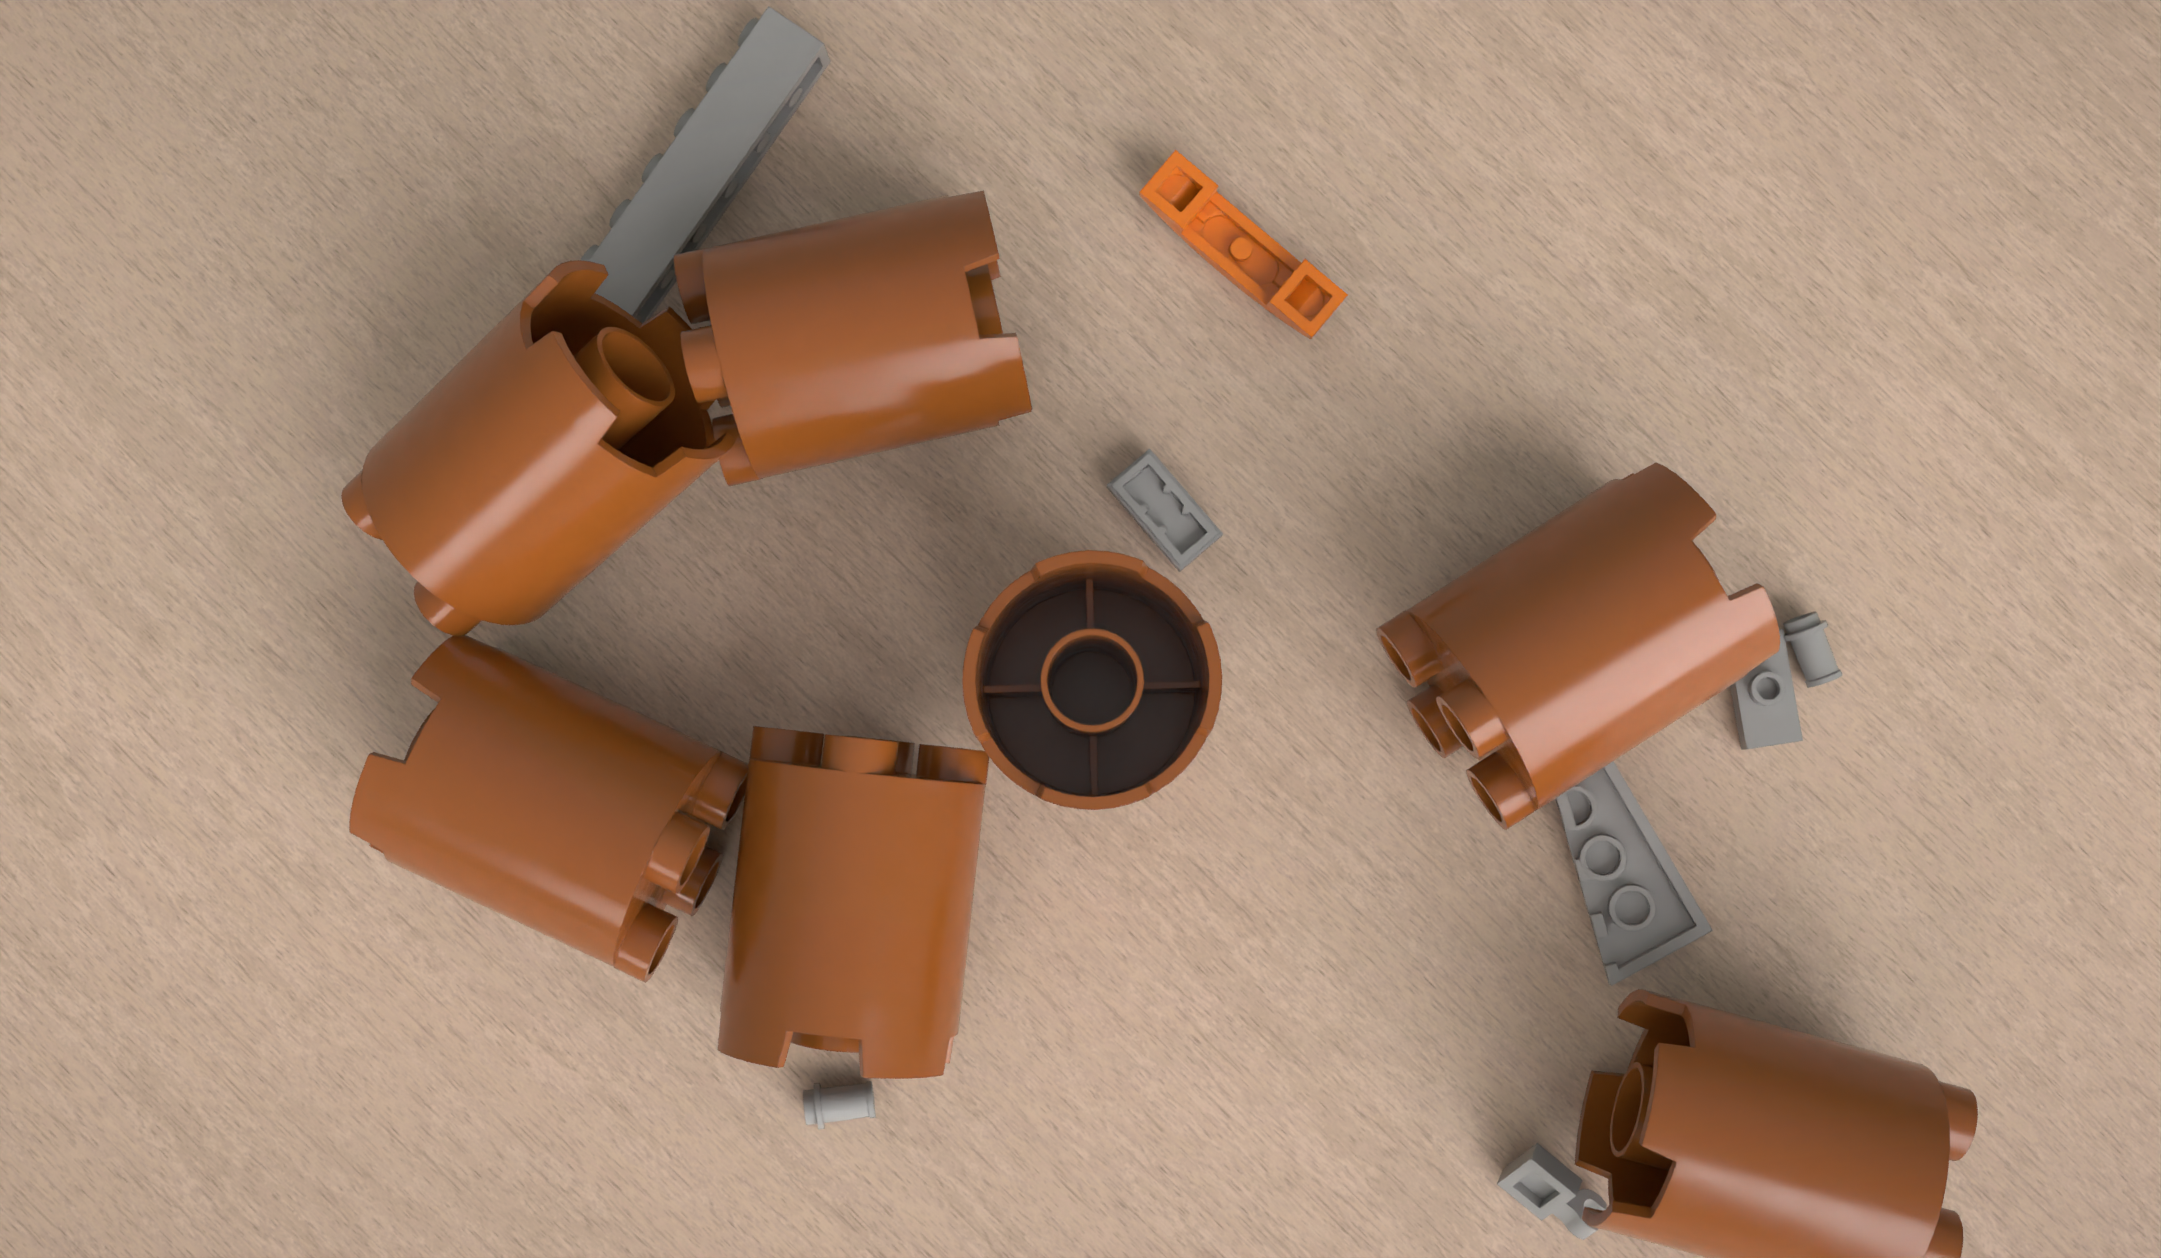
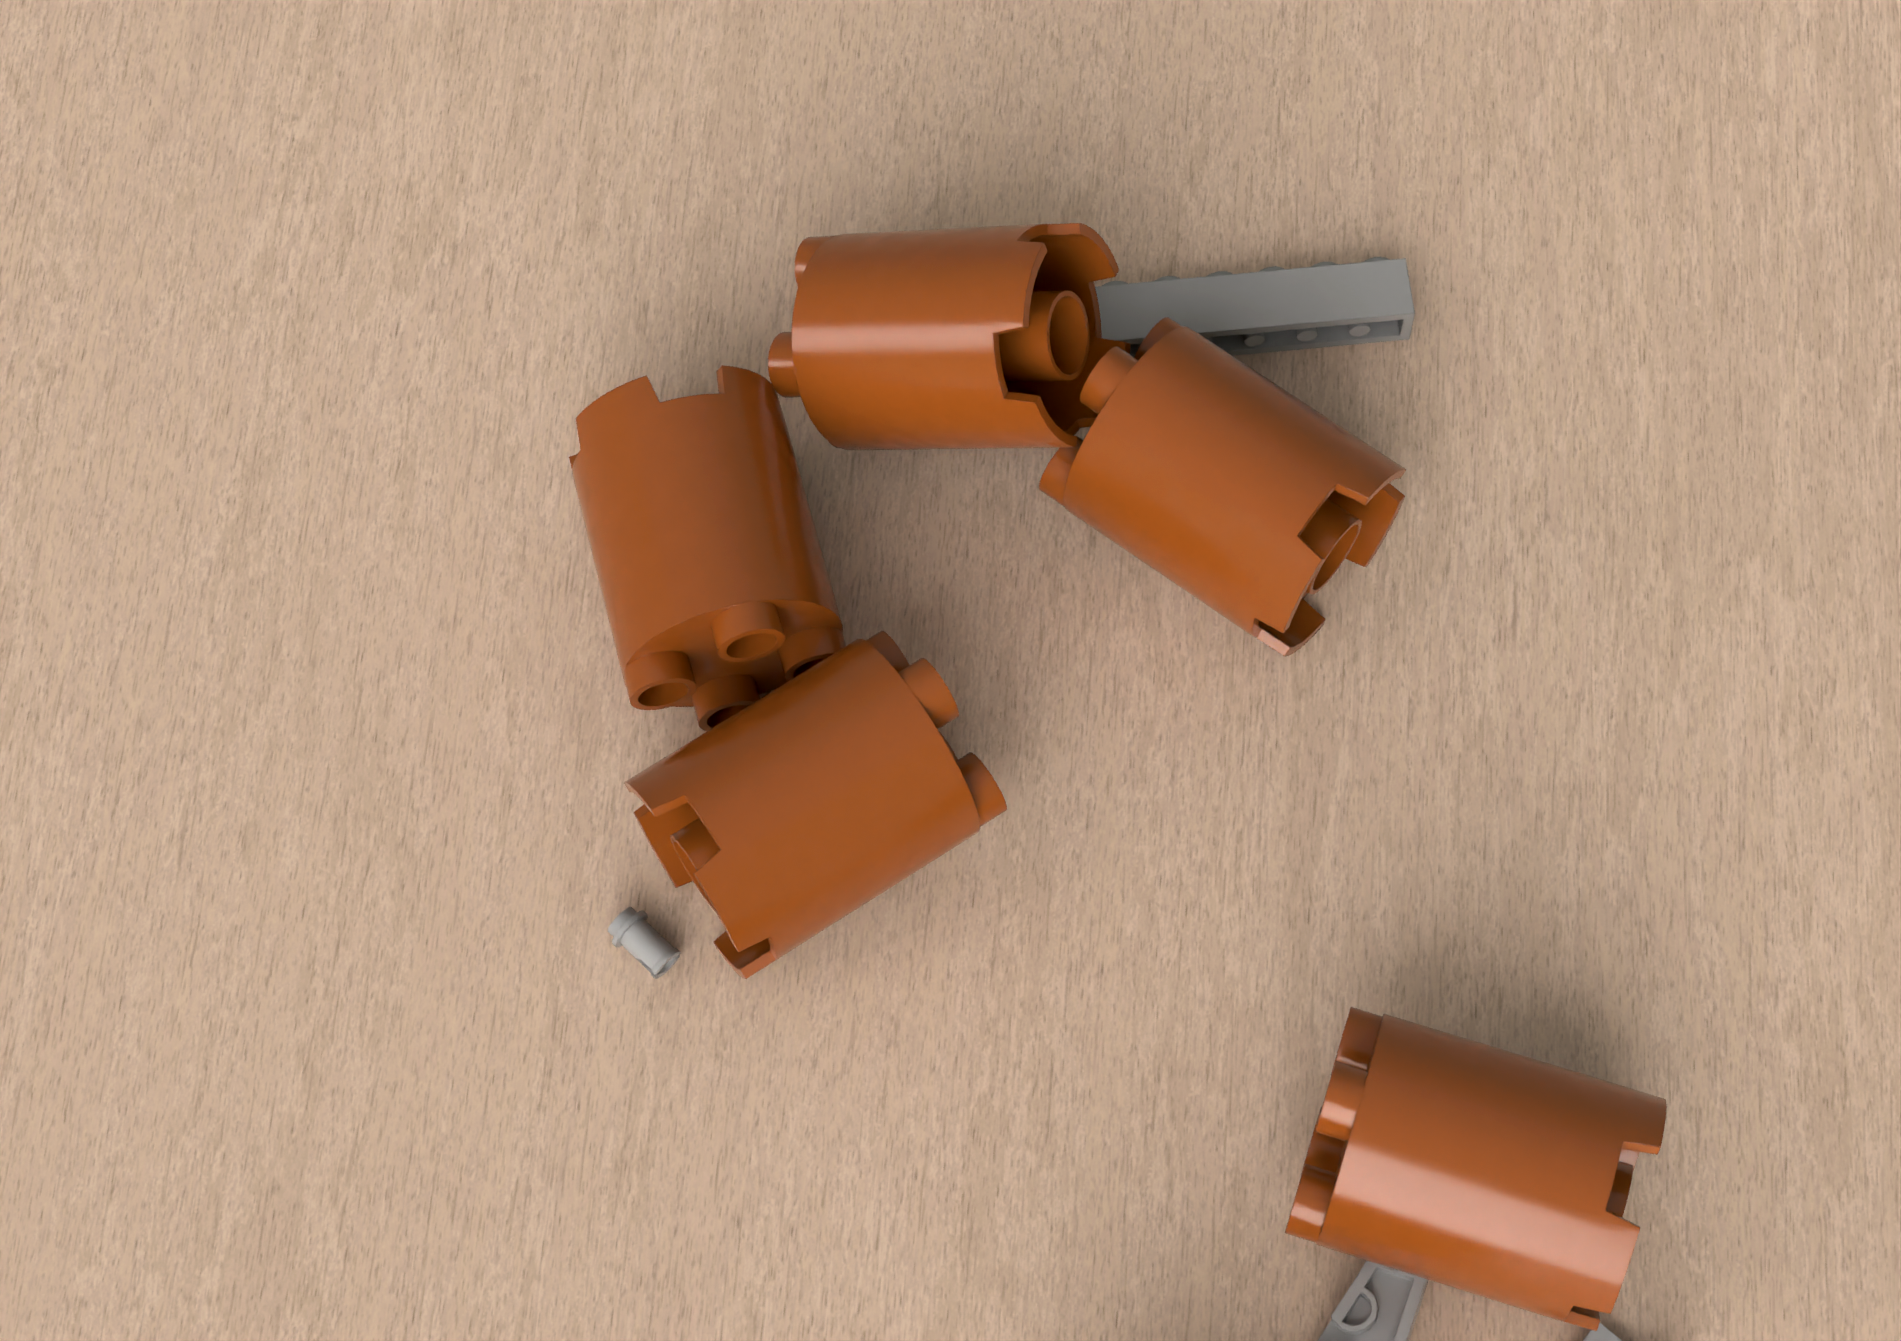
camera: 50 degrees right, 20 degrees down
(1092, 680) = (1119, 820): dark orange brick -> none
(1164, 510) = (1300, 818): light grey plate -> none
(1240, 248) = (1547, 711): orange slope -> none

